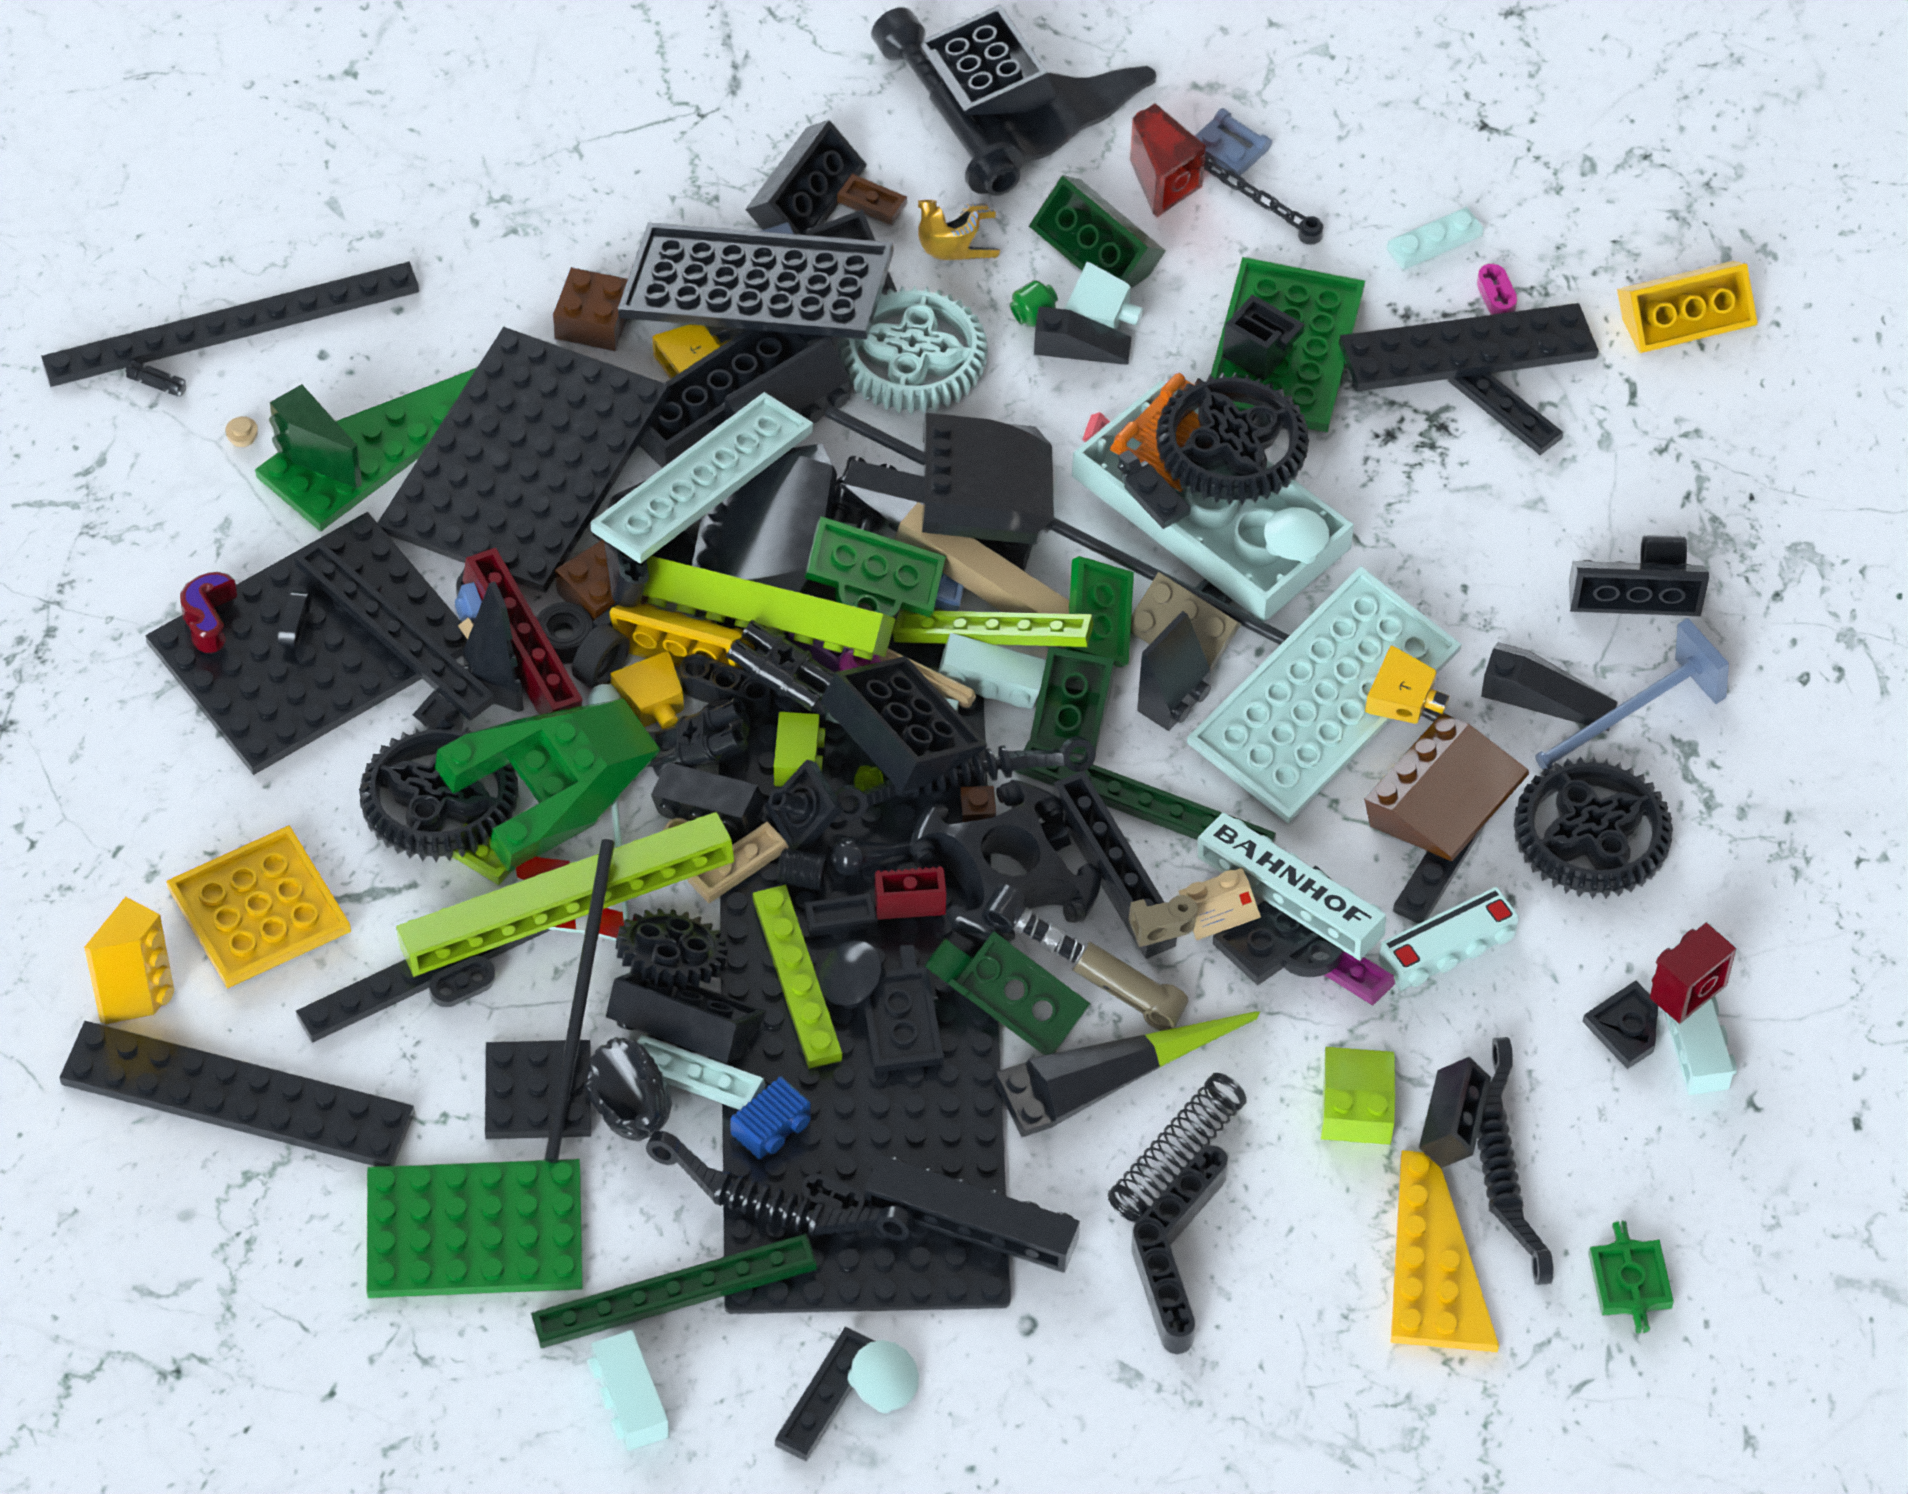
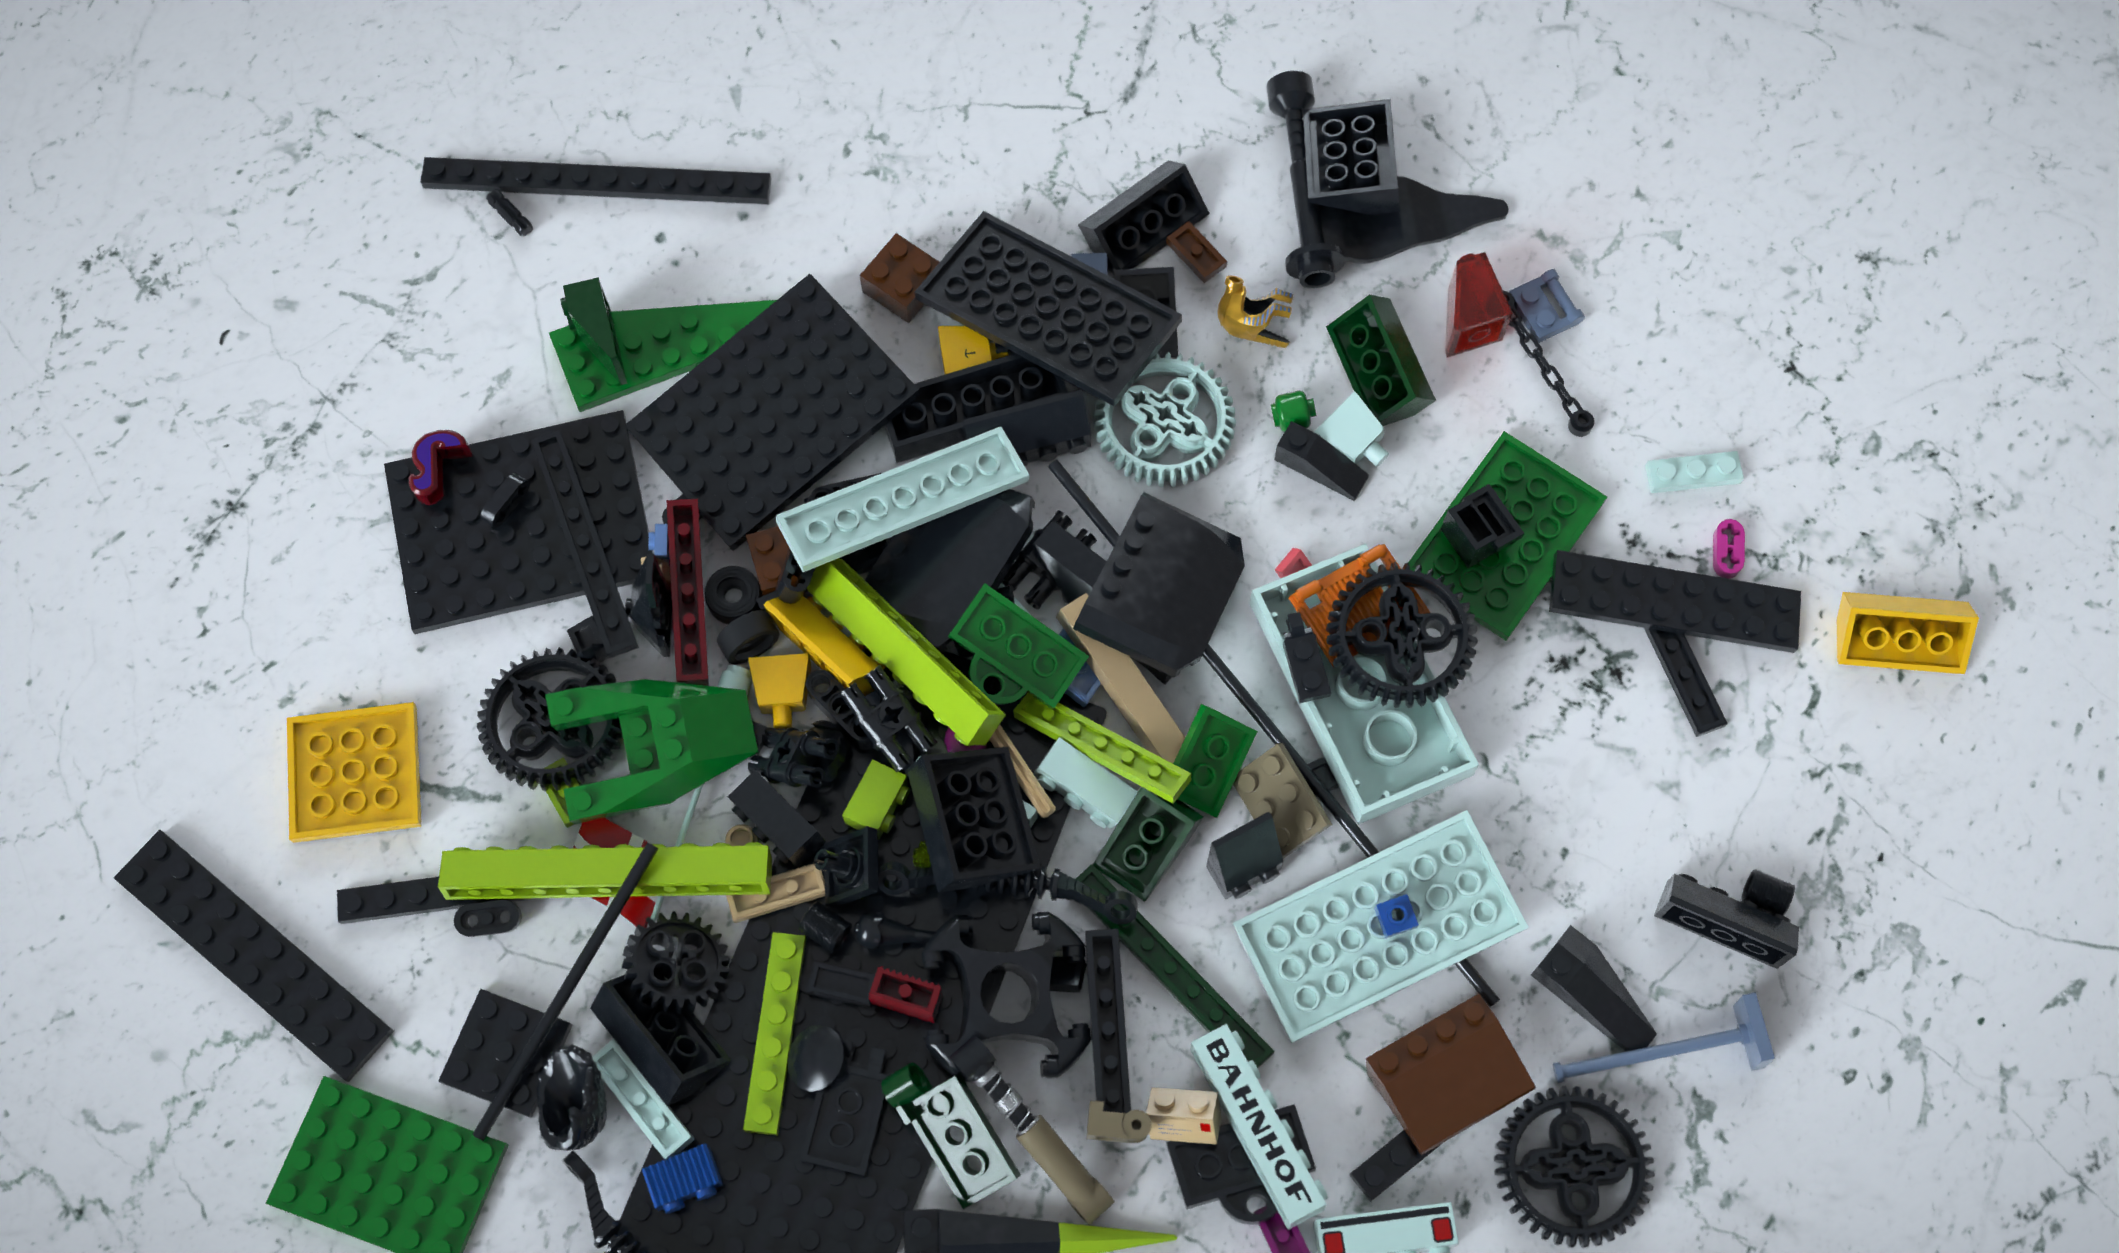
camera: 25 degrees right, 15 degrees up
(129, 964) = (194, 804): yellow slope -> none
(241, 431) = (553, 289): tan plate -> none
(977, 803) = (1014, 916): reddish brown plate -> none
(1296, 534) = (1419, 757): light aqua dish -> none
(1337, 680) = (1390, 926): none -> blue plate
(1404, 689) = (1452, 959): yellow torso -> none

